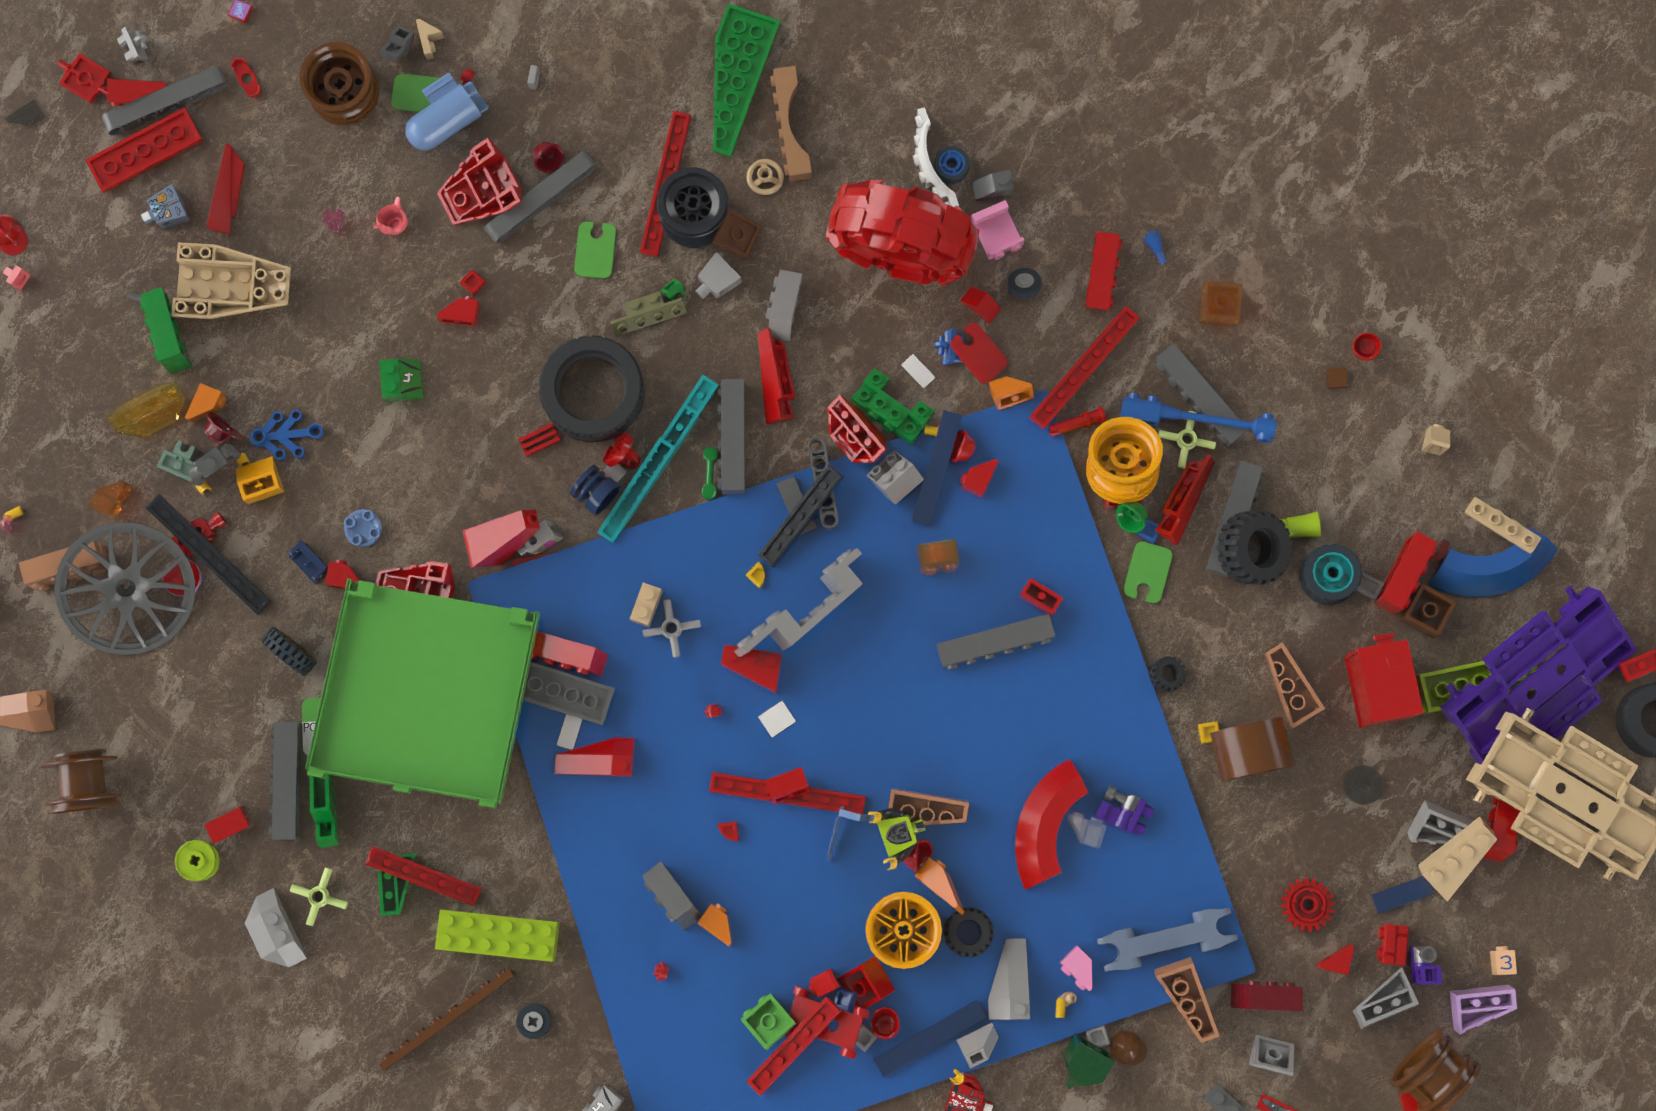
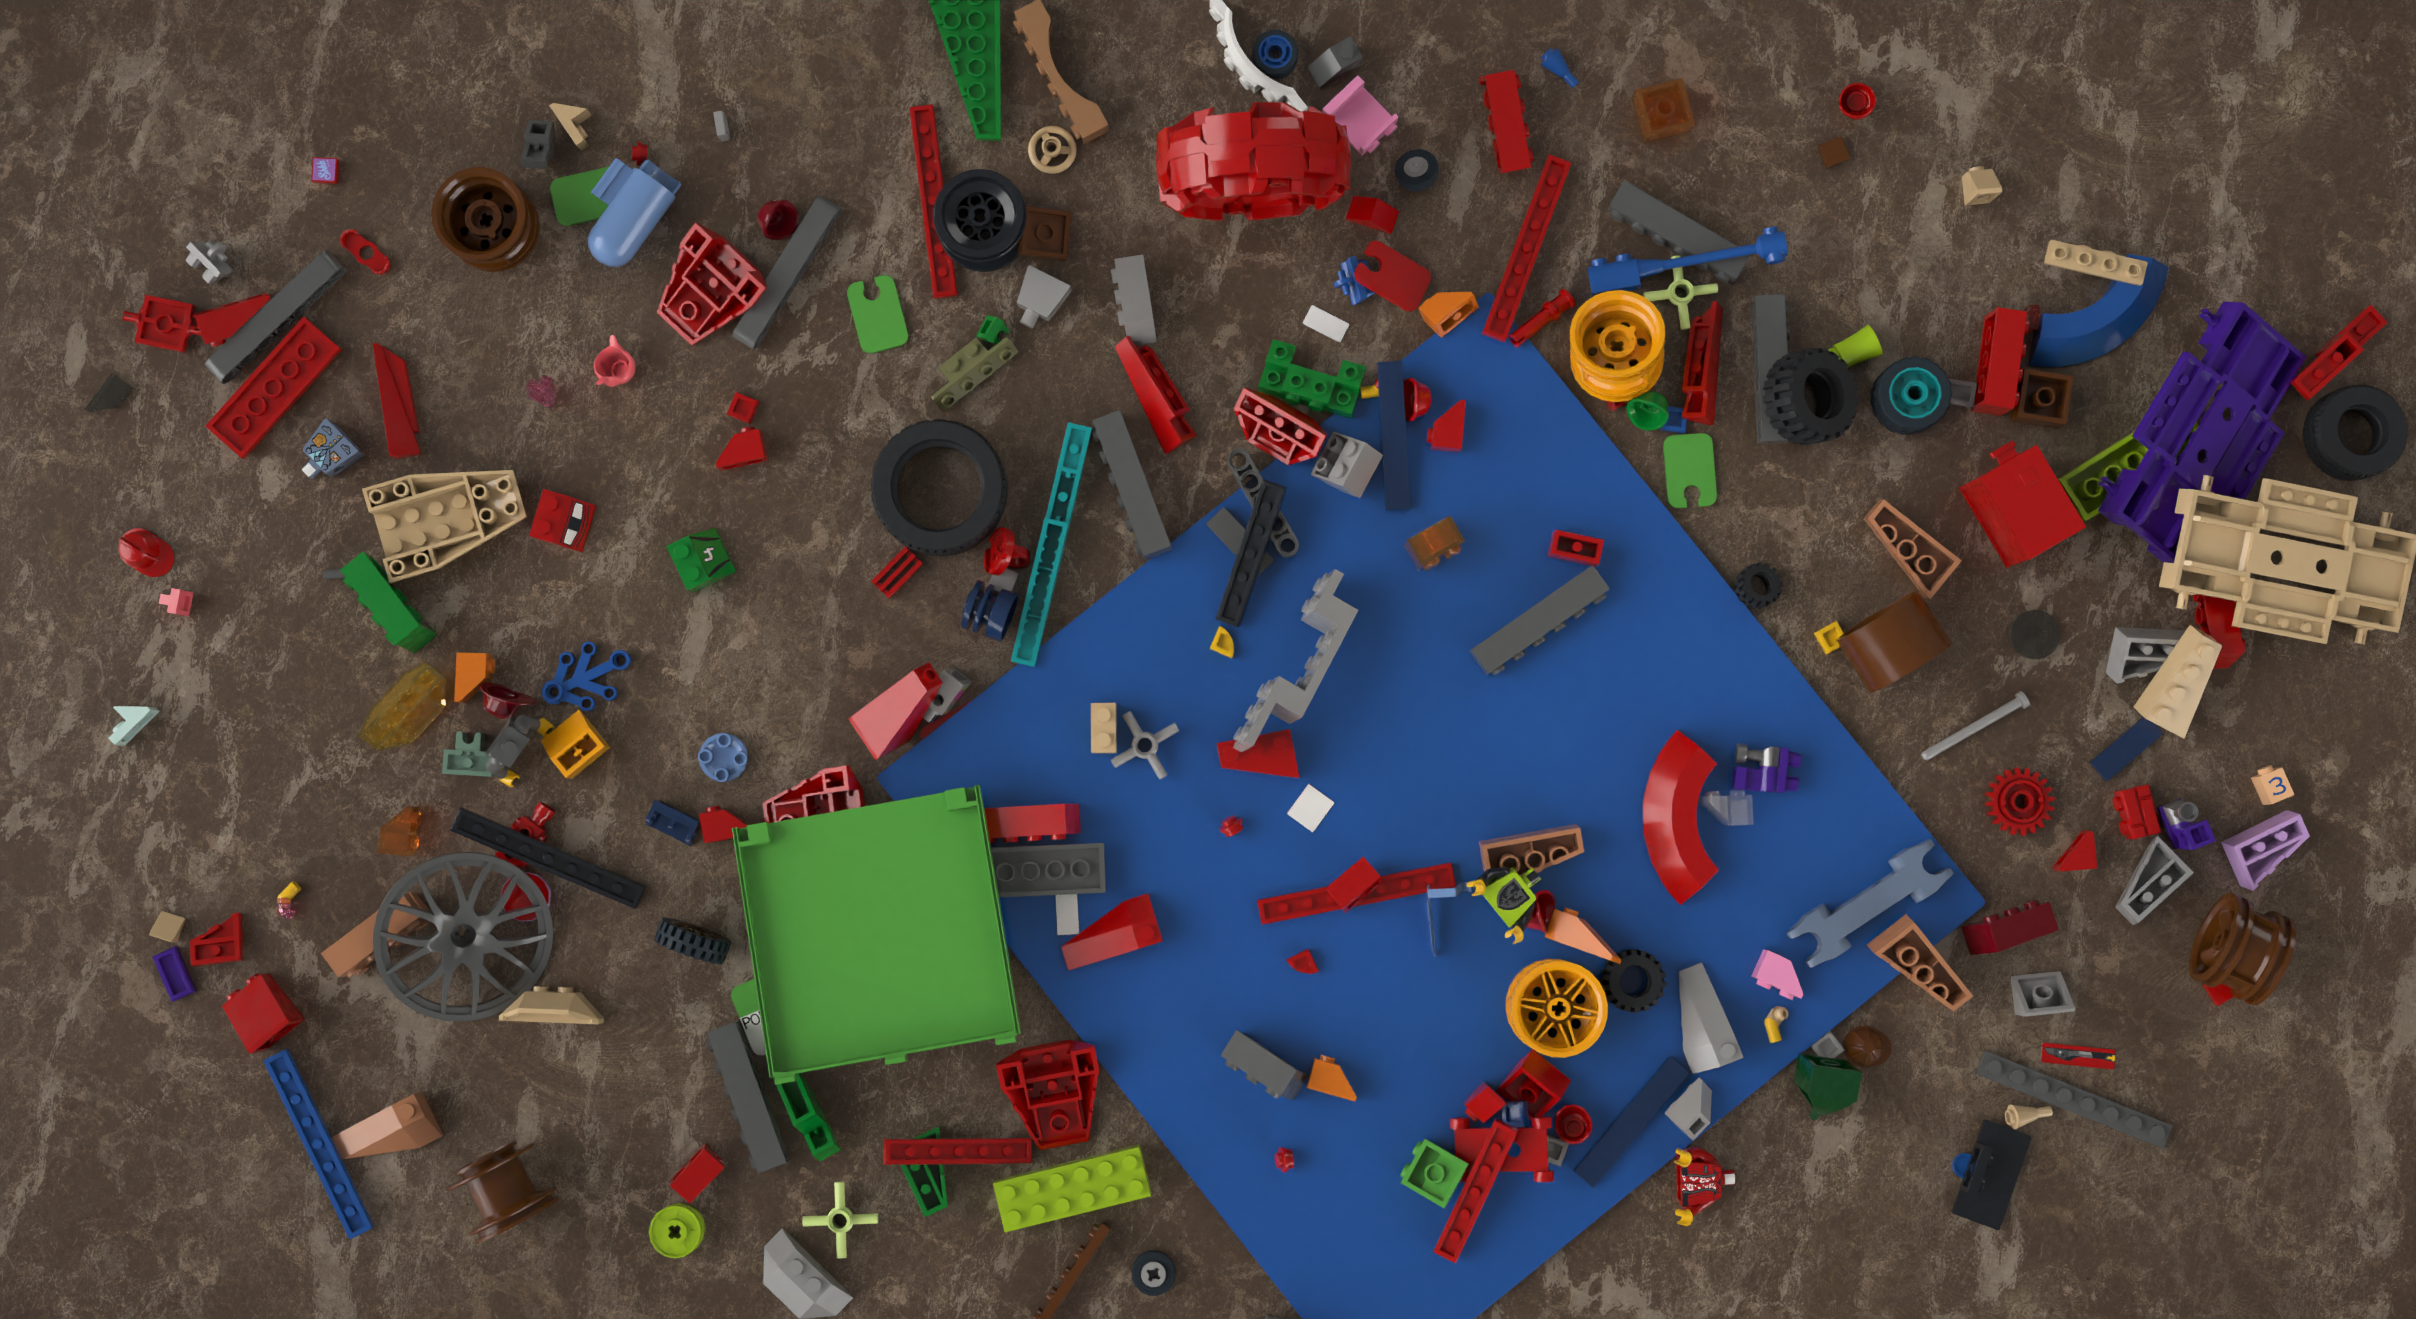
camera: 20 degrees left, 5 degrees up
(170, 664) = (552, 1007): none -> tan wedge
(312, 316) = (562, 520): none -> red slope
(509, 858) = (1052, 1090): none -> red wedge
(709, 491) = (1127, 561): green bar -> none
(1334, 830) = (2020, 701): none -> light grey bar

